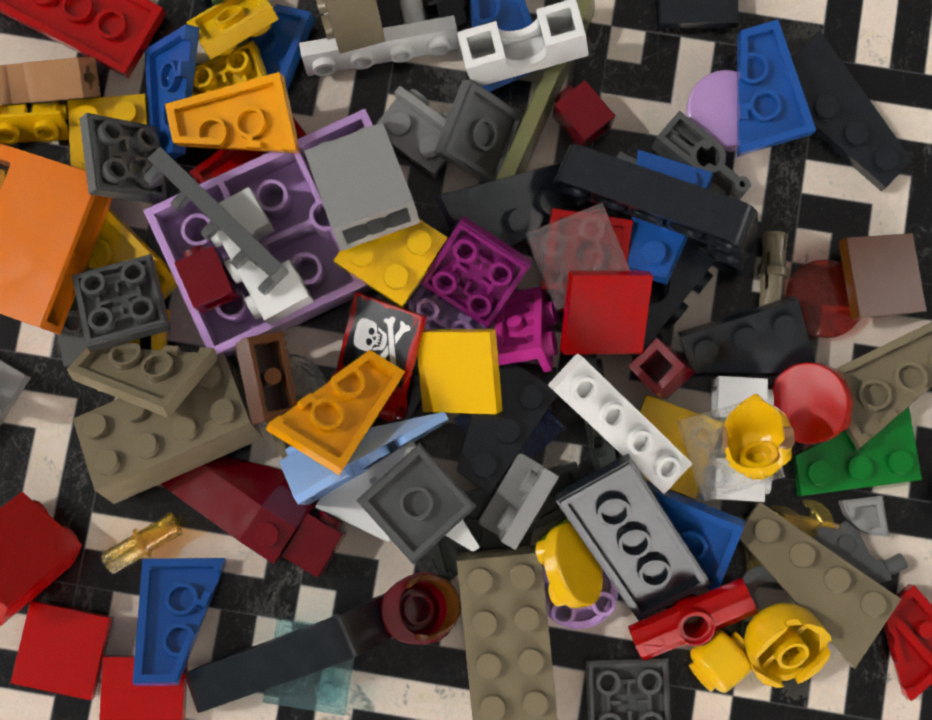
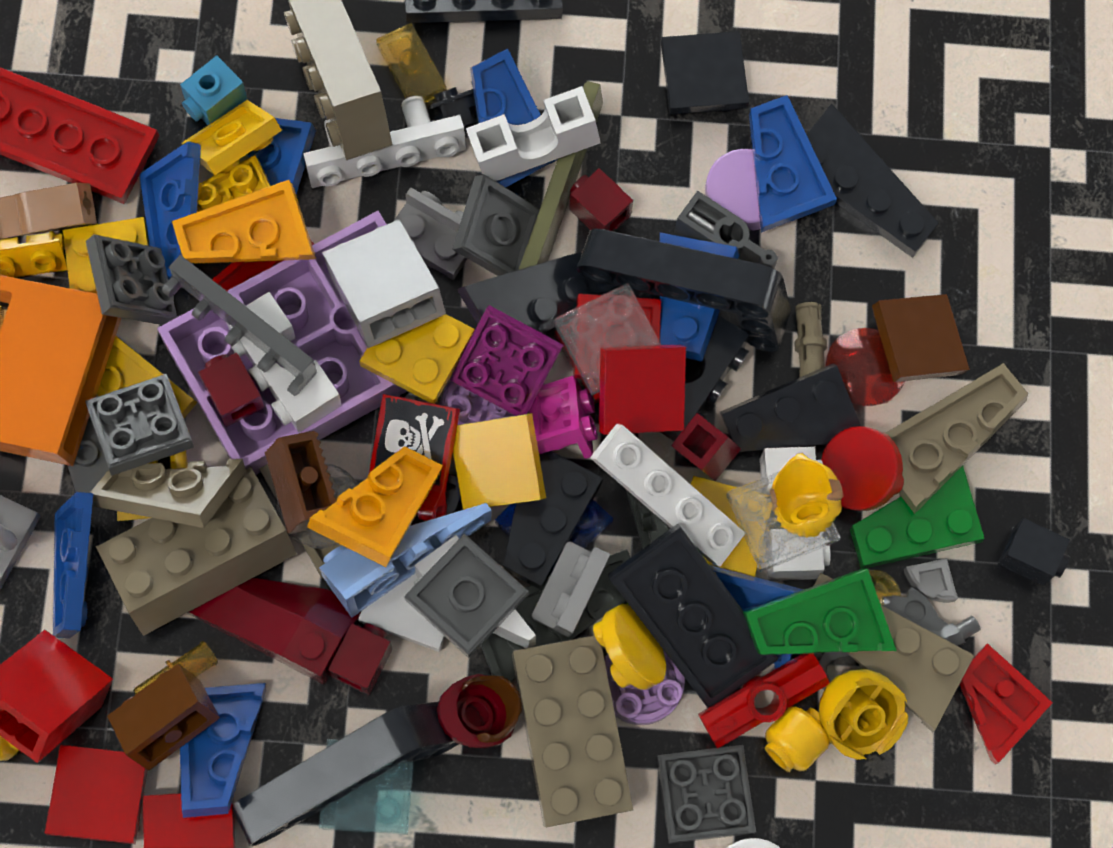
camera: 15 degrees left, 10 degrees down
(51, 432) = (70, 564): none -> blue wing
(122, 589) = (163, 717): none -> reddish brown brick
(767, 553) = (823, 618): none -> green wing

